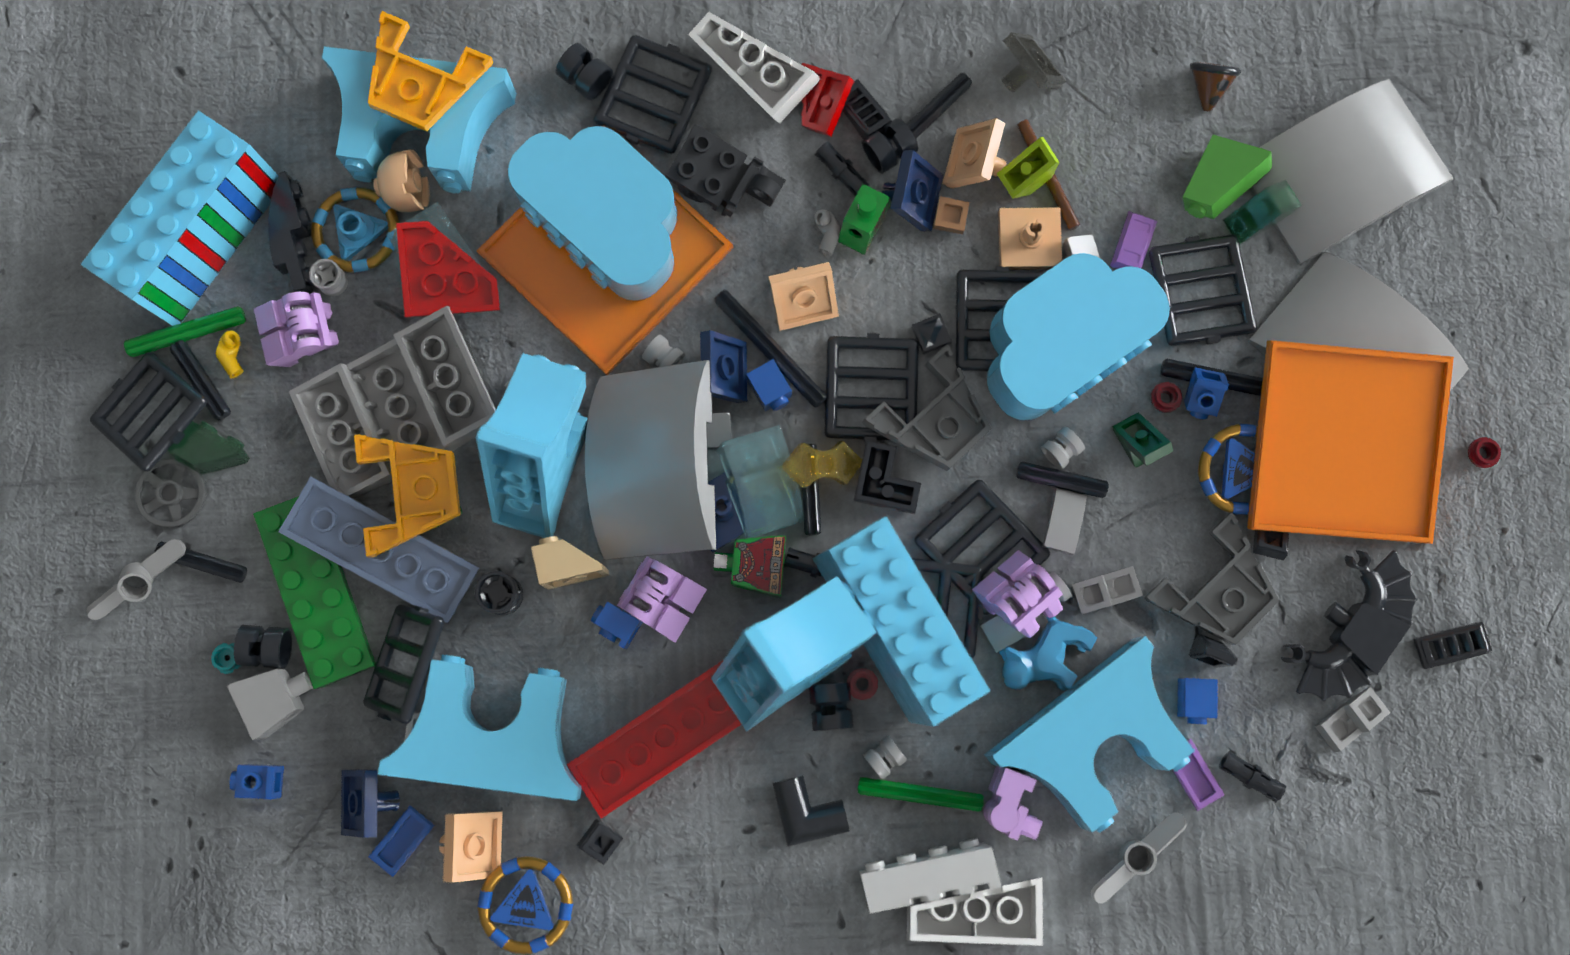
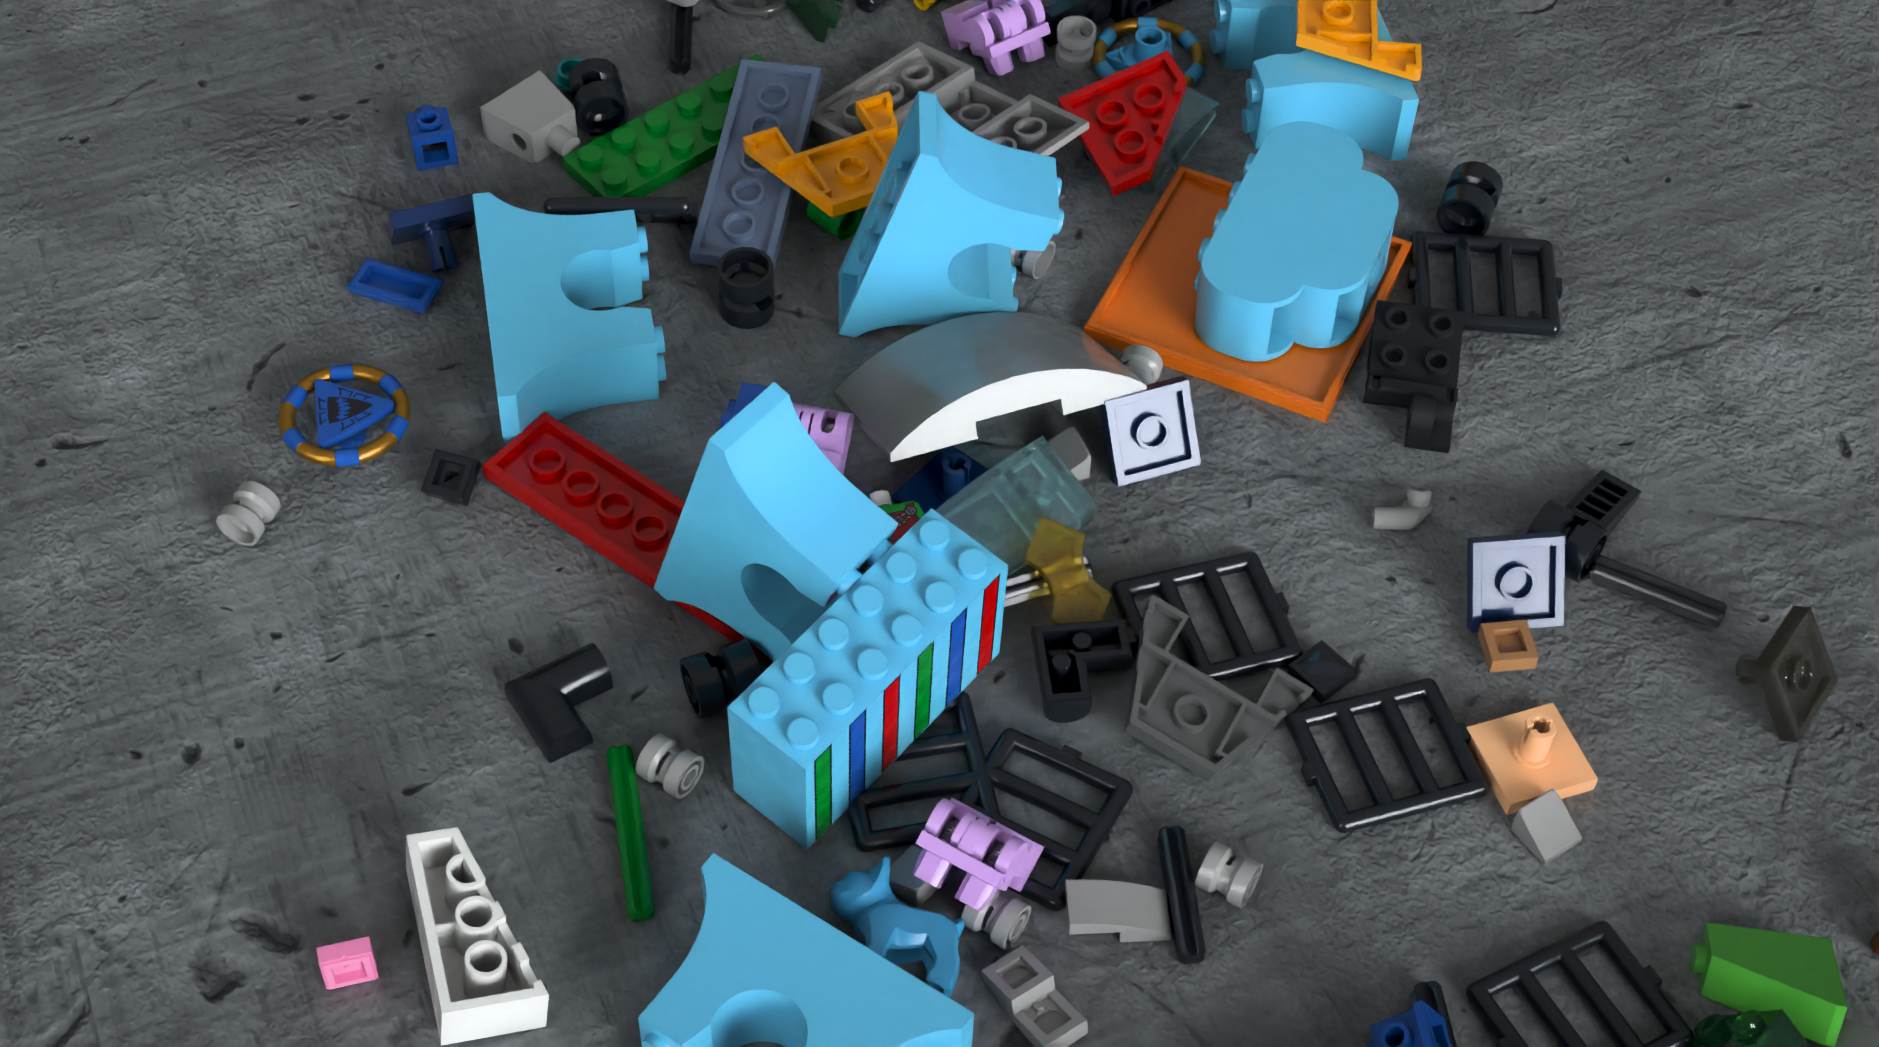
camera: 70 degrees right, 30 degrees down
(401, 182) = (1223, 66): light nougat cylinder -> none
(471, 845) = (409, 336): light nougat tile -> none
(563, 564) = (807, 332): tan slope -> none
(762, 72) = (1579, 362): white wedge -> none
(769, 386) = (1150, 496): blue brick -> none
(770, 348) = (1204, 492): black axle -> none
(804, 296) = (1293, 492): light nougat tile -> none
(825, 101) = (1583, 456): red wing -> none
(841, 168) = (1501, 501): black pin -> none
(864, 216) = (1438, 530): green torso -> none
(929, 875) = (516, 863): white wedge -> none
(975, 154) = (1611, 644): light nougat tile -> none
(1004, 809) = (646, 926): lavender hips -> none
(1029, 169) = (1624, 705): lime slope -> none
(1052, 184) = (1639, 757): reddish brown bar -> none
(1070, 333) = (1405, 816): medium azure brick -> none
(1133, 241) = (1600, 898): medium lavender tile -> none
(1141, 440) = (1288, 983): dark green slope -> none
(1170, 389) = (1380, 991): dark red plate -> none

